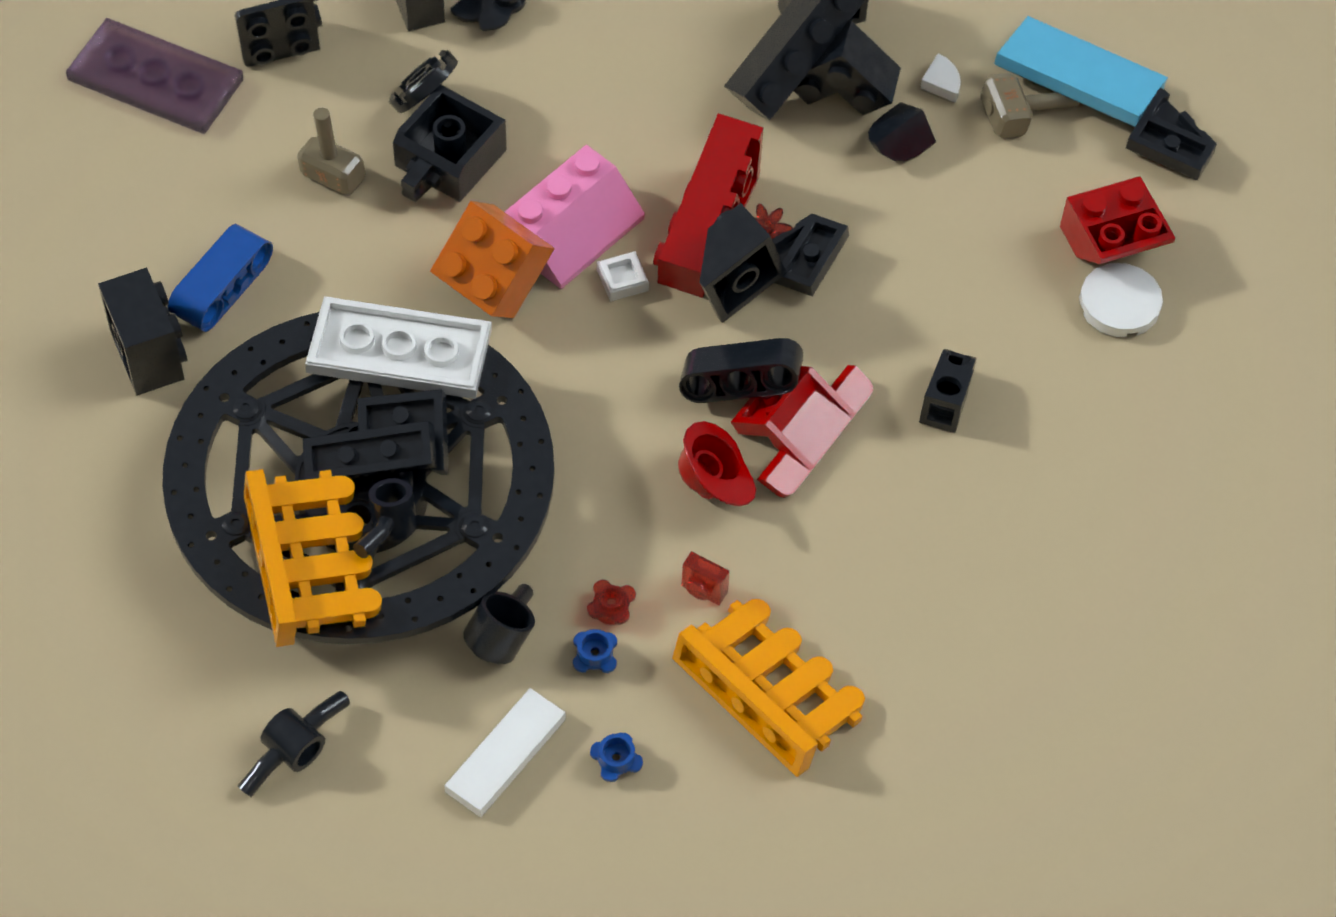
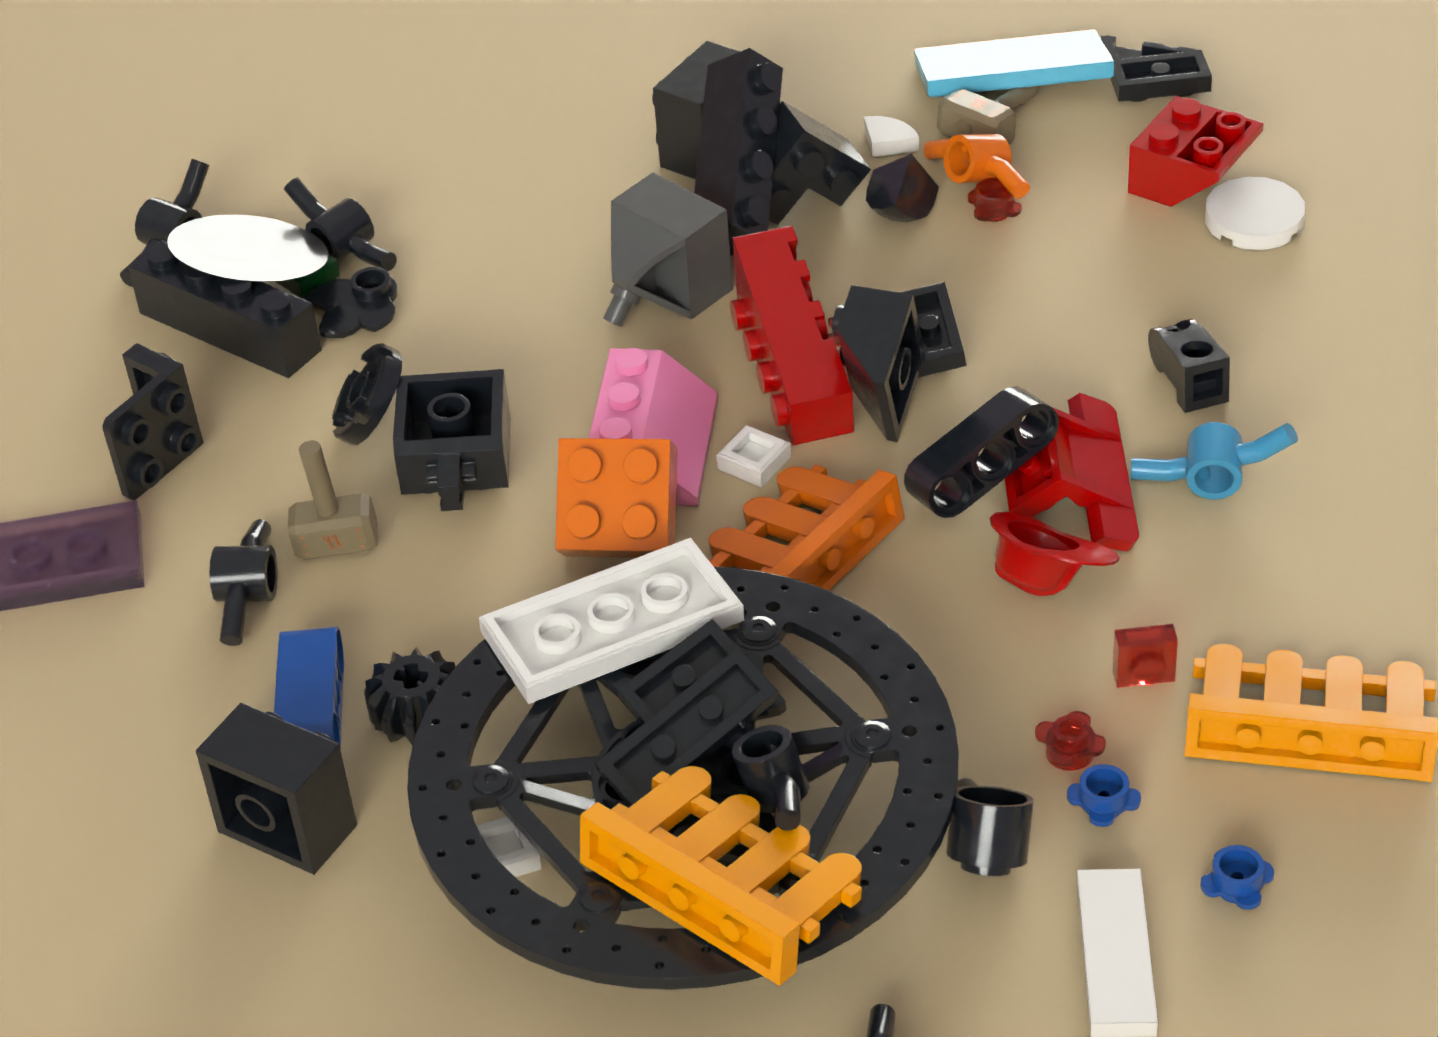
camera: 30 degrees left, 15 degrees down
(227, 451) = (510, 846): none -> white tile
(254, 167) = (242, 576): none -> black piece
(271, 308) = (403, 691): none -> black gear
(601, 369) = (821, 544): none -> orange fence
(688, 85) = (667, 249): none -> dark grey piece
(887, 471) = (1214, 459): none -> dark azure piece
(960, 170) = (993, 201): none -> clear red plate
(969, 140) = (976, 158): none -> orange piece

